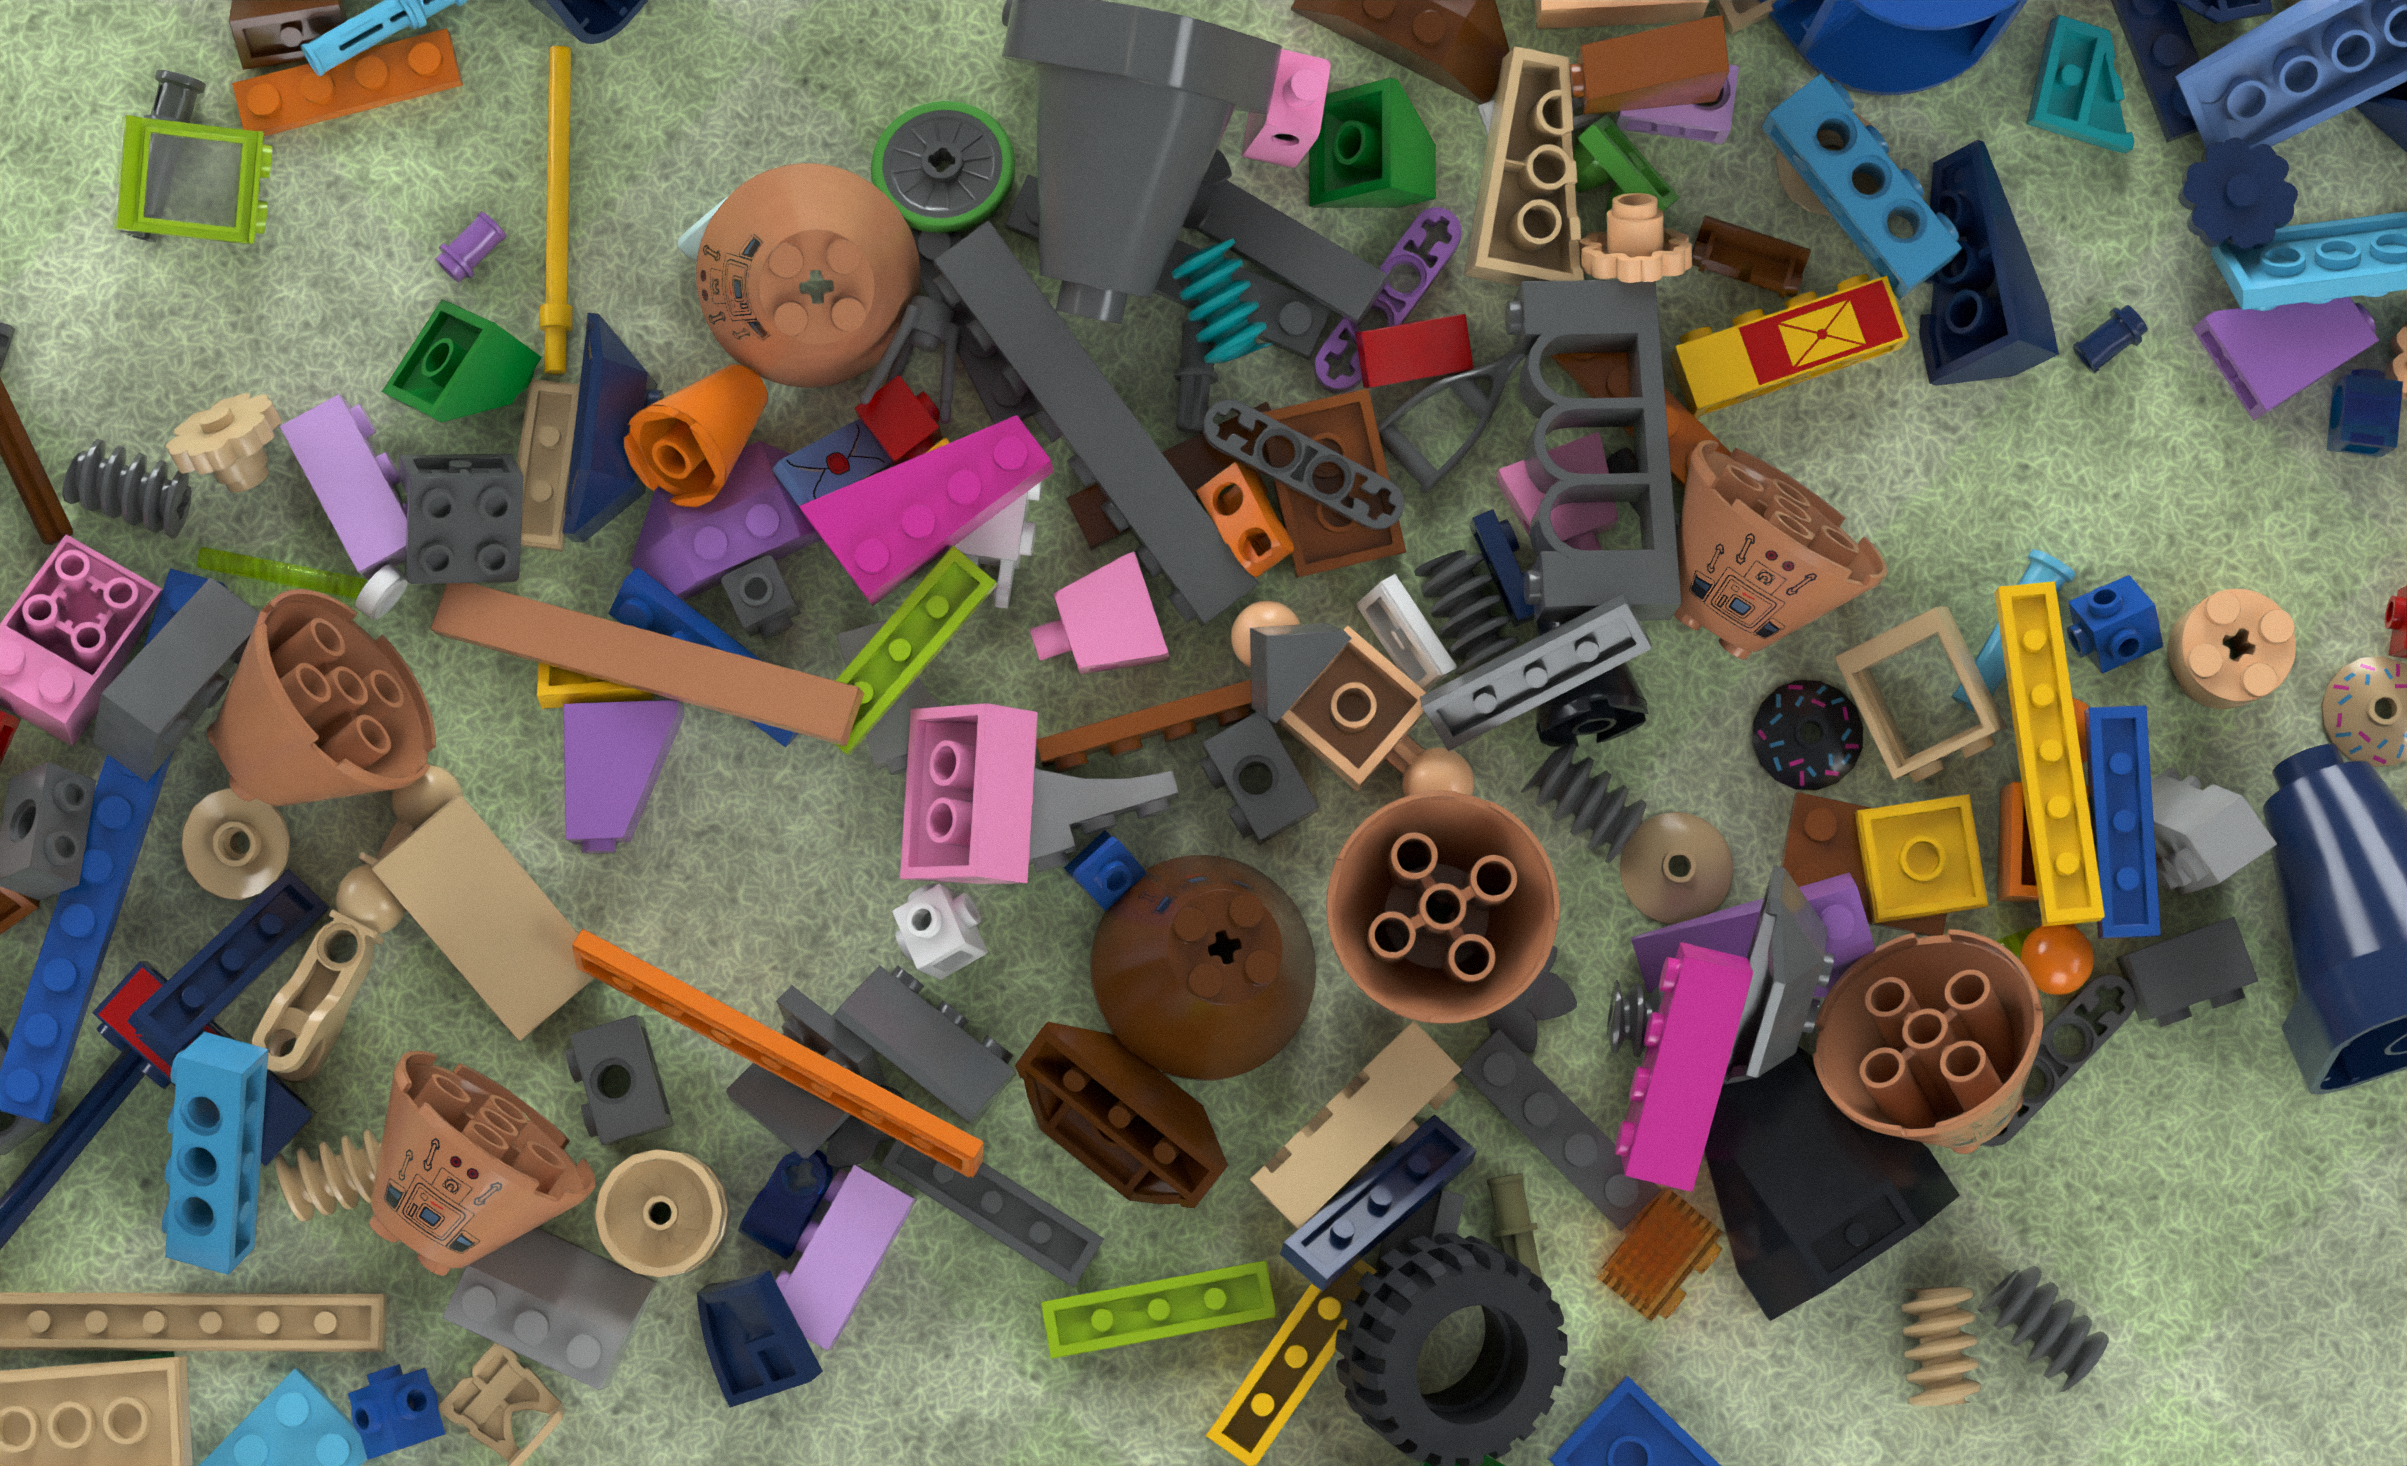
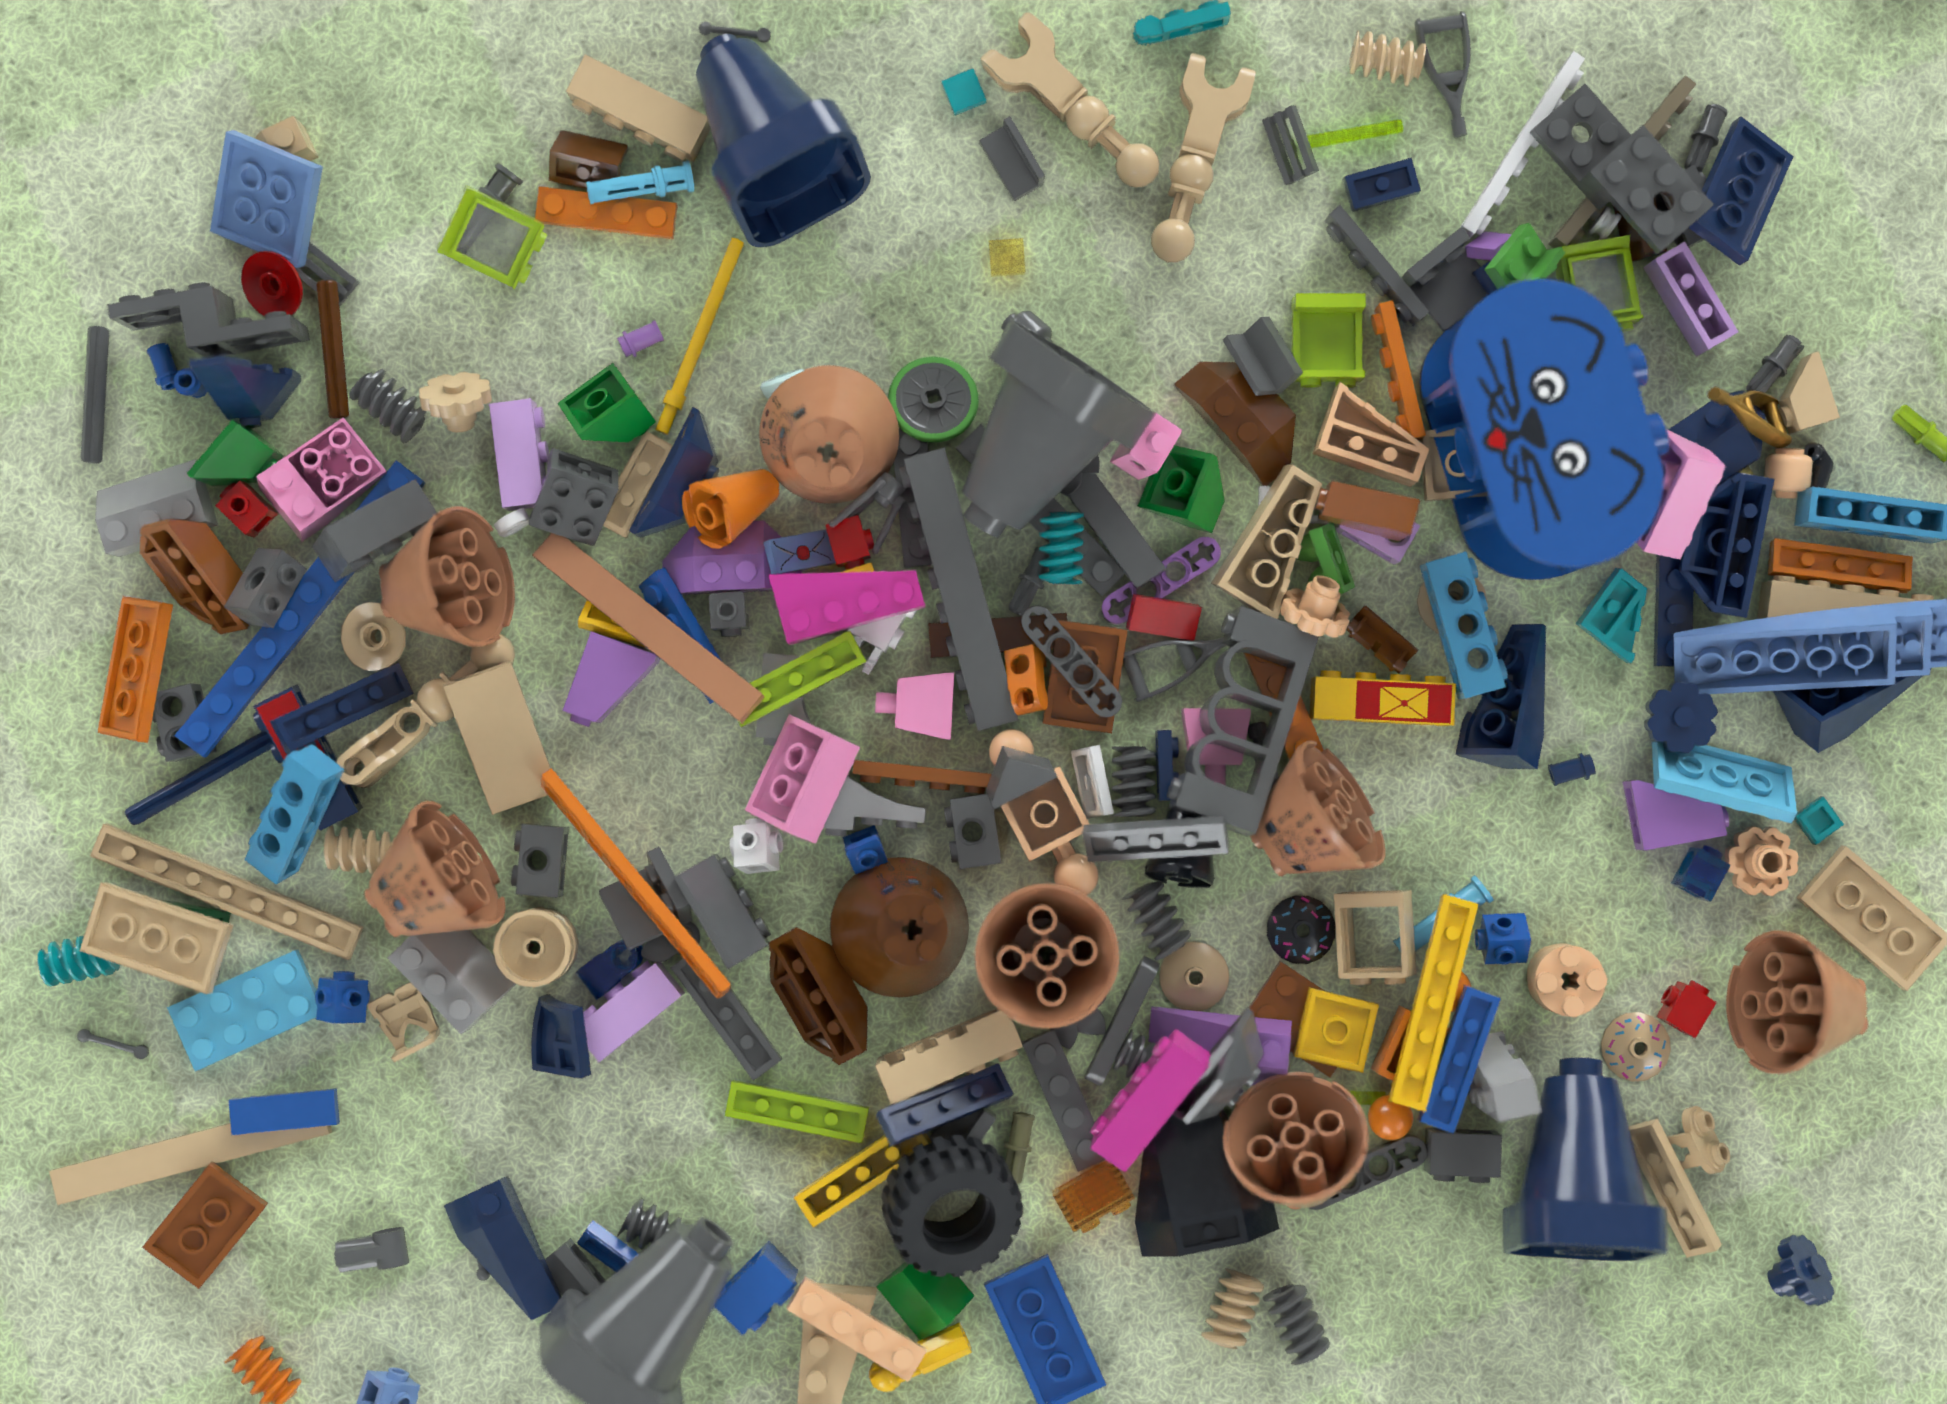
camera: 20 degrees right, 5 degrees up
(280, 572) = (459, 487): clear neon green bar -> none
(1595, 975) = (1122, 1020): none -> dark grey beam

